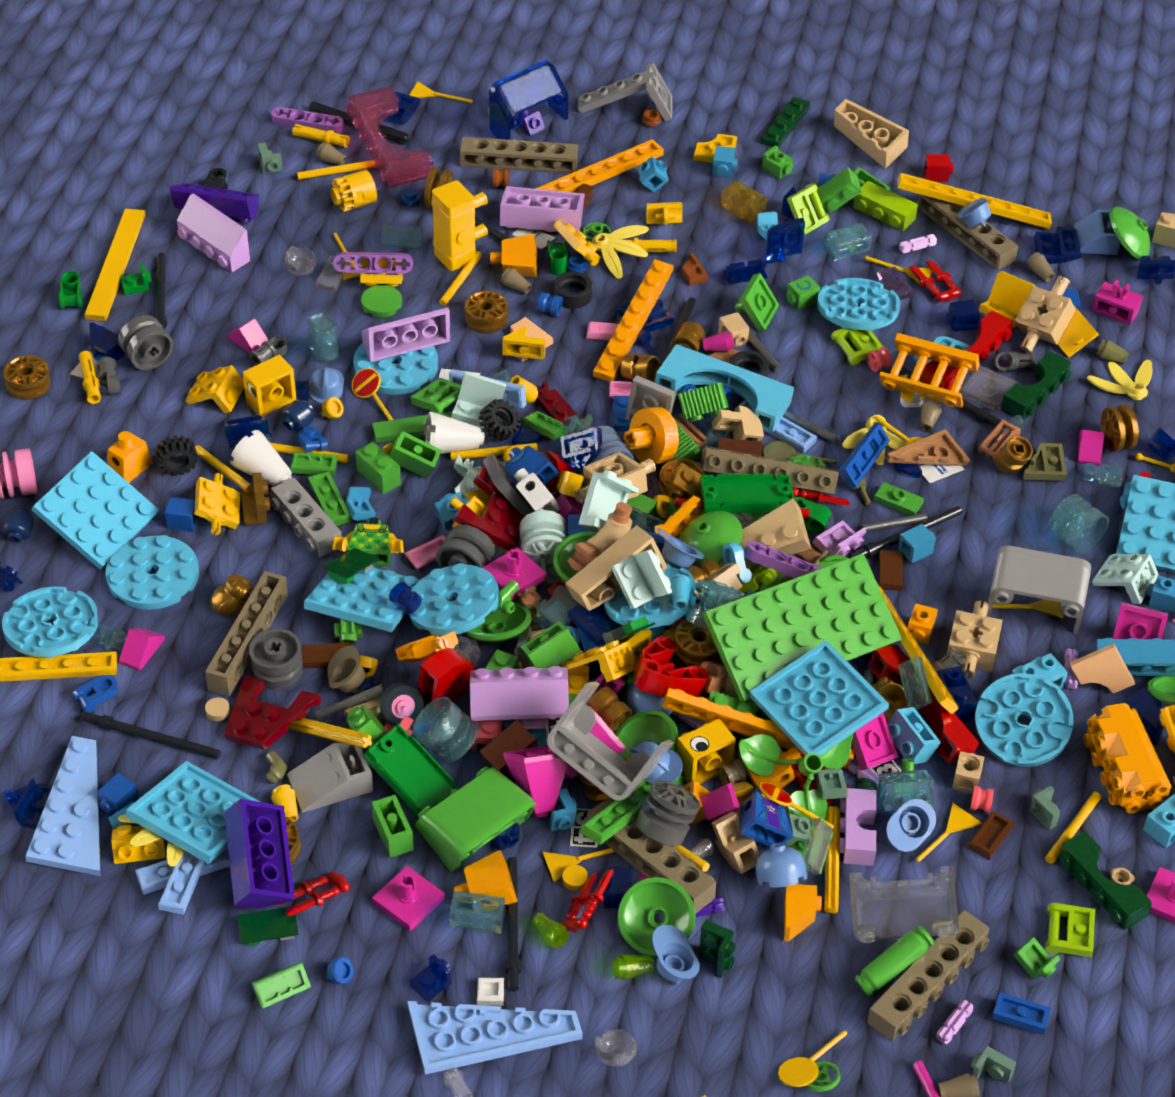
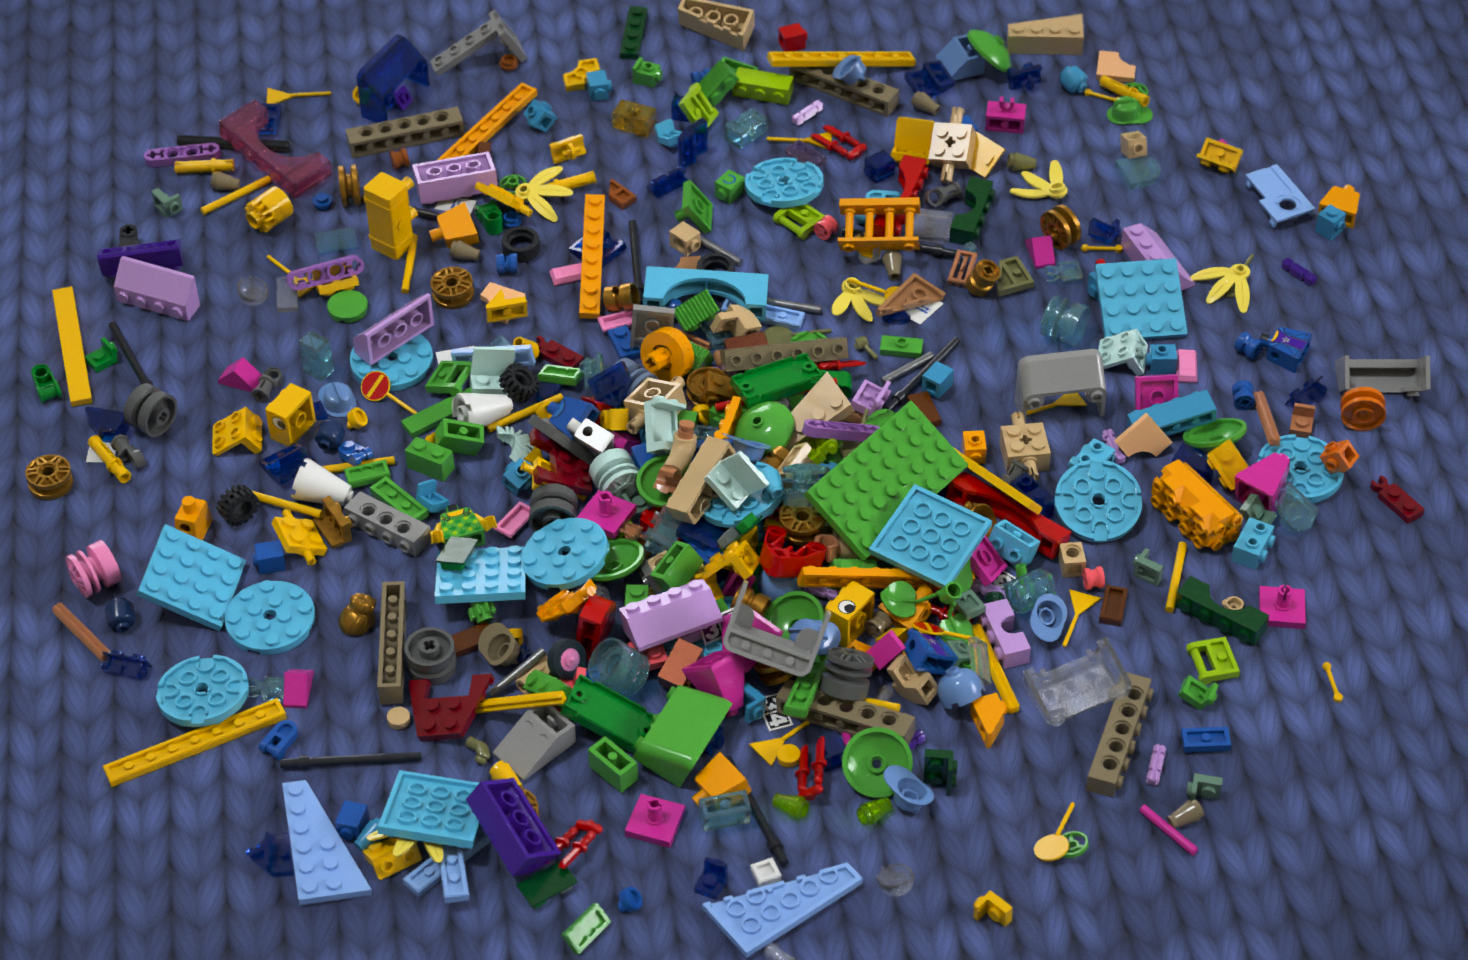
camera: 20 degrees left, 0 degrees up
(403, 596) = (525, 565): clear blue wheel -> none
(504, 597) = (614, 543): bright green arm -> none
(644, 339) = (607, 272): clear blue hand -> none
(689, 336) = (649, 255): pearl gold wheel -> none
(719, 342) = (679, 253): dark pink cone -> none
(734, 553) = (795, 435): medium azure plate -> none
(864, 455) = (857, 316): blue hinge -> none
(894, 960) = (1088, 731): bright green axle -> none
(915, 683) = (998, 498): clear light blue plate -> none

